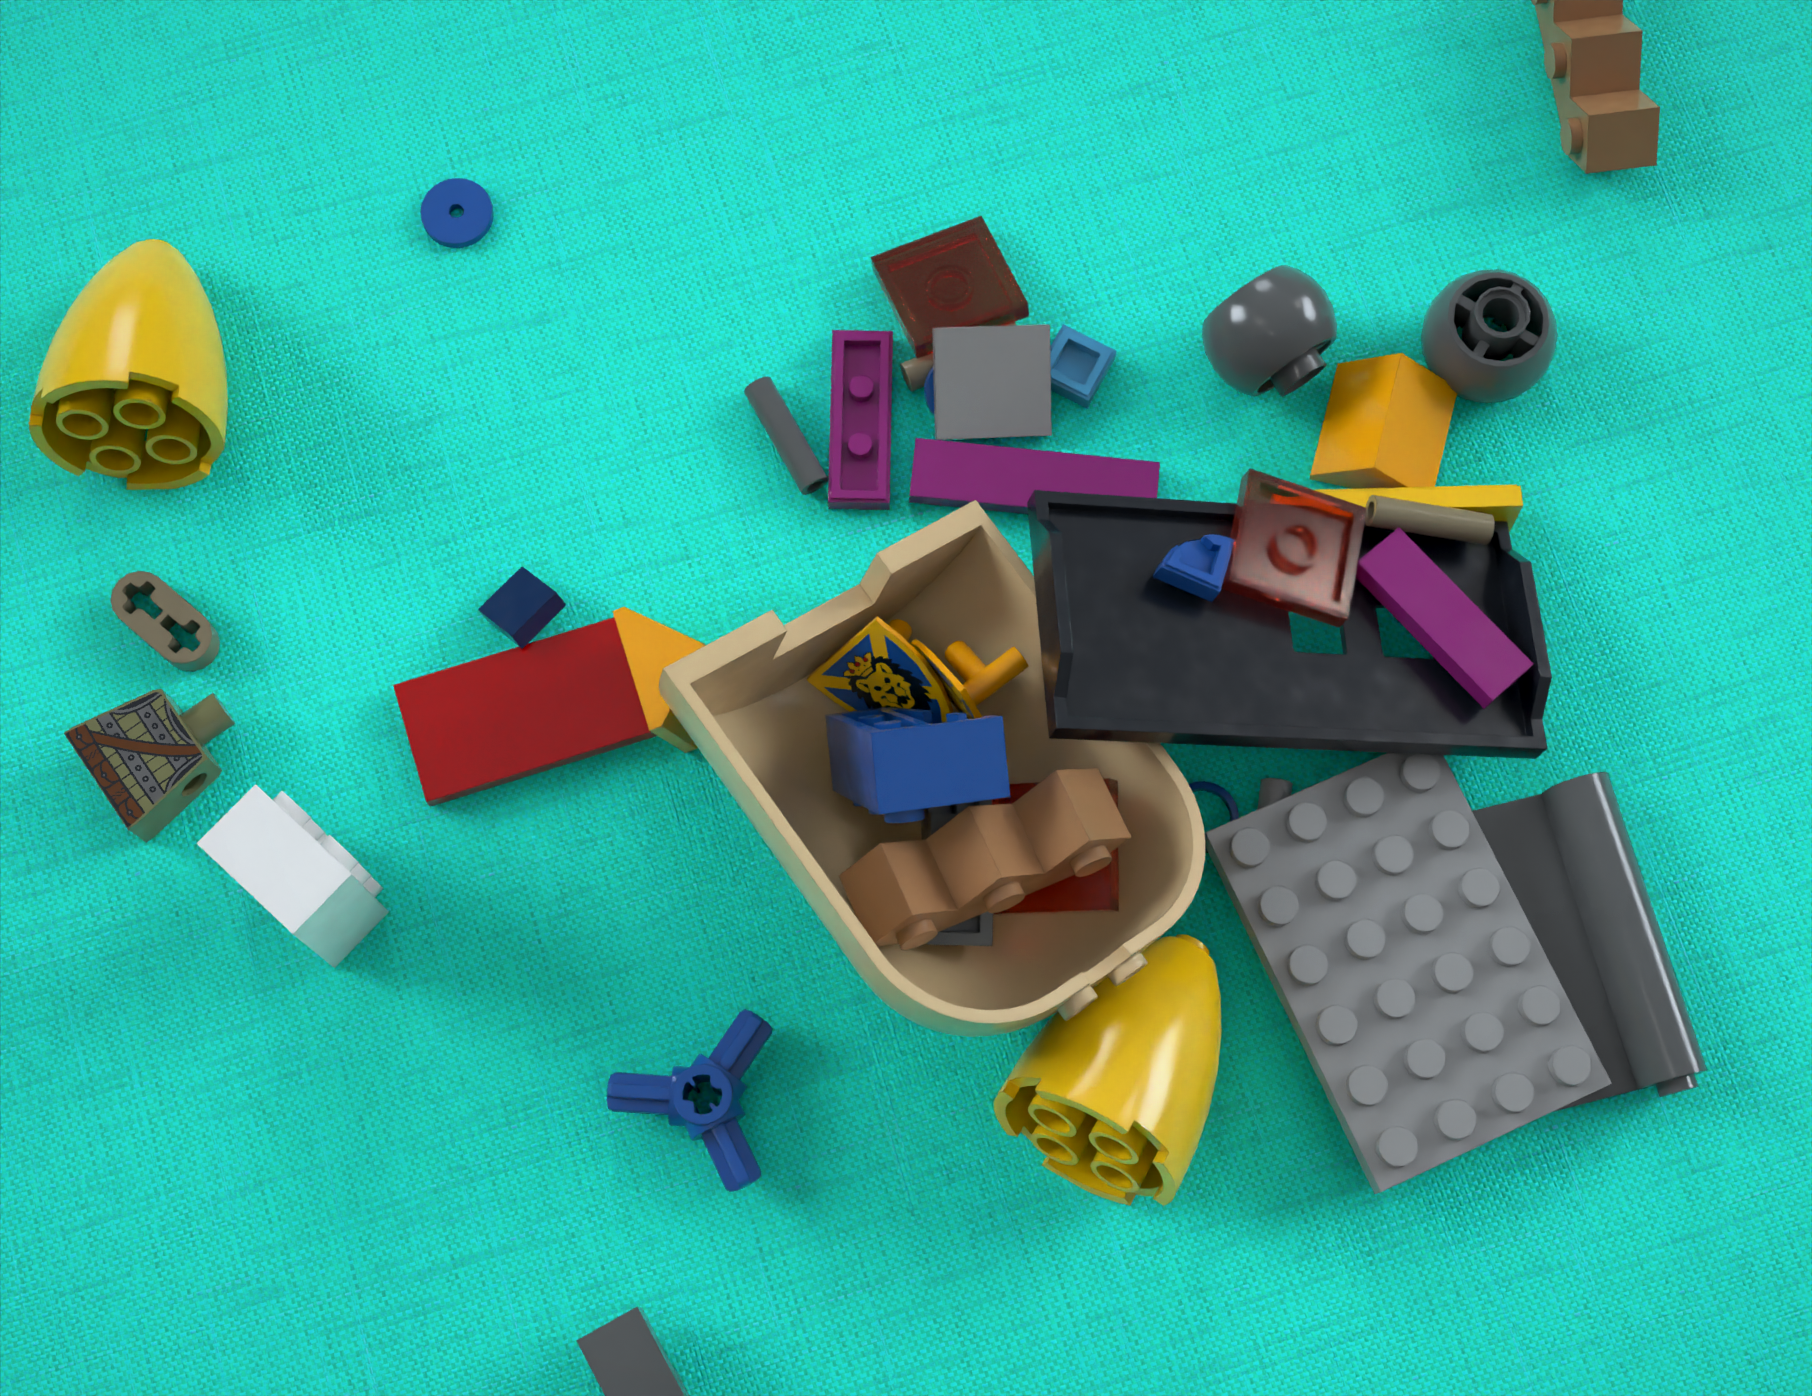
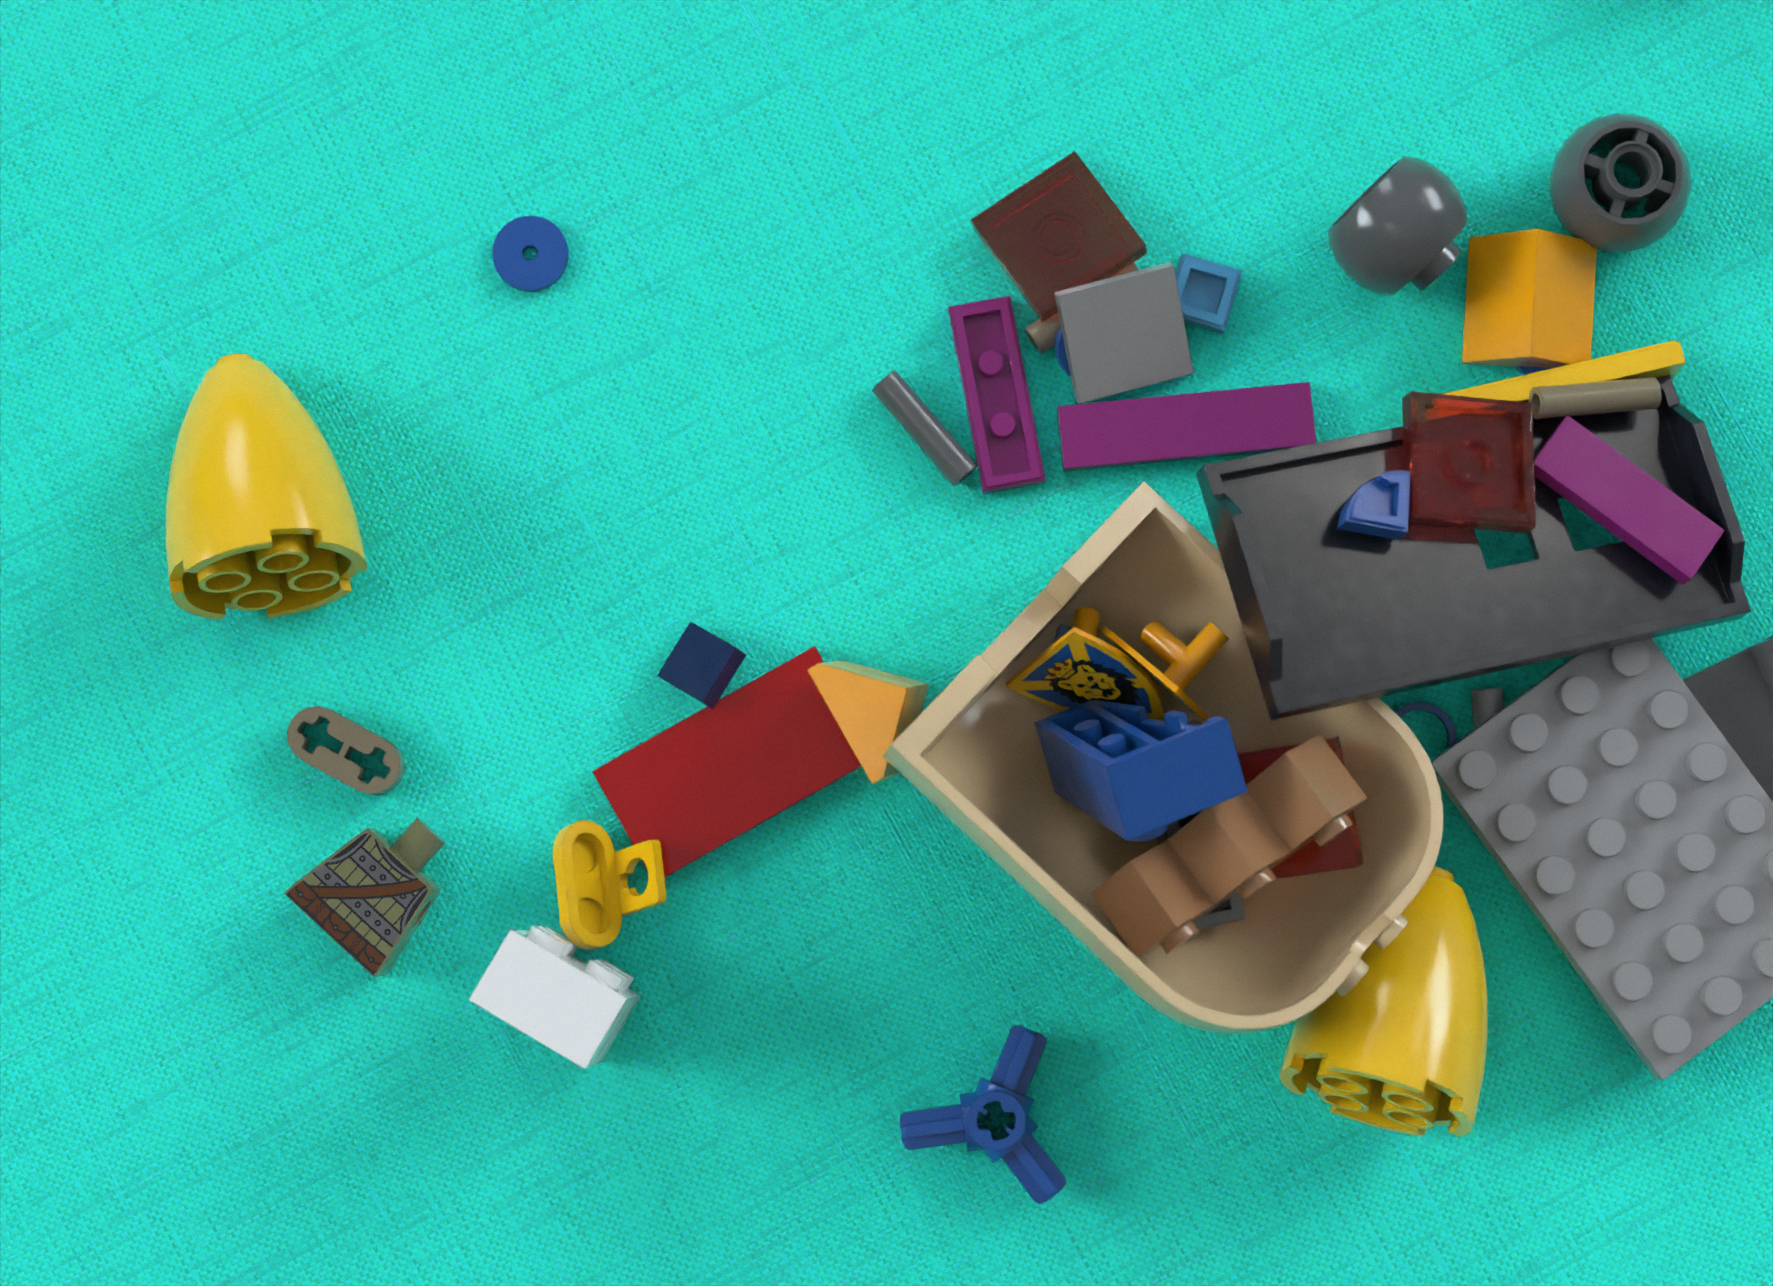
camera: 10 degrees left, 10 degrees up
(368, 789) = (595, 883): none -> yellow bracket

